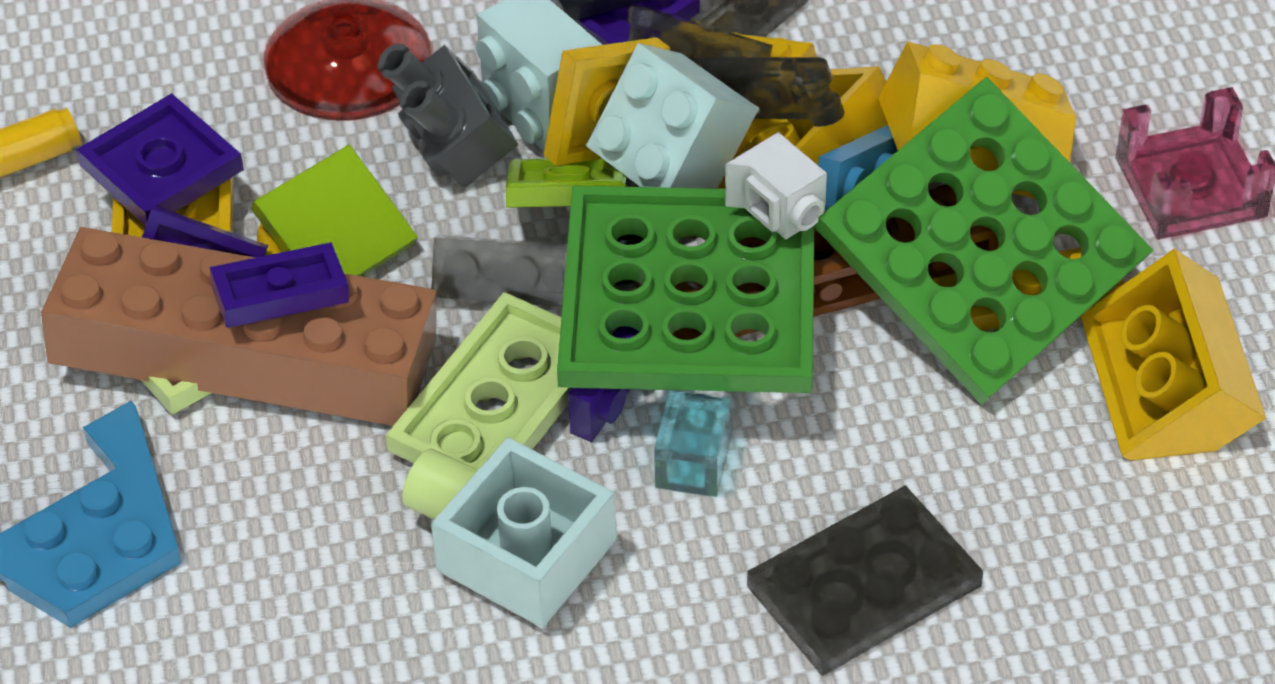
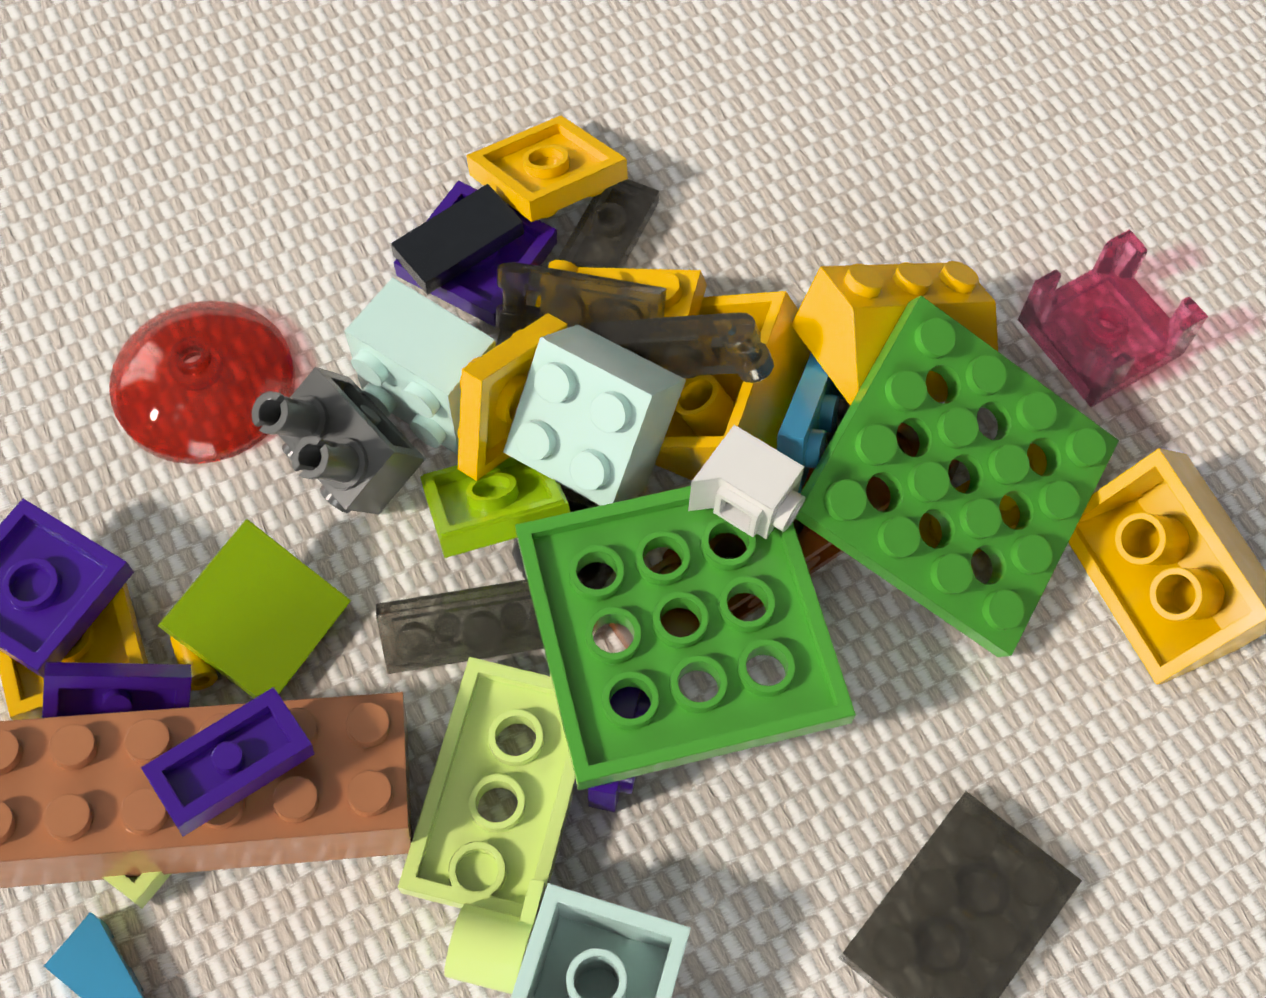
camera: 20 degrees left, 15 degrees up
(692, 443) = (734, 802): clear light blue brick -> none

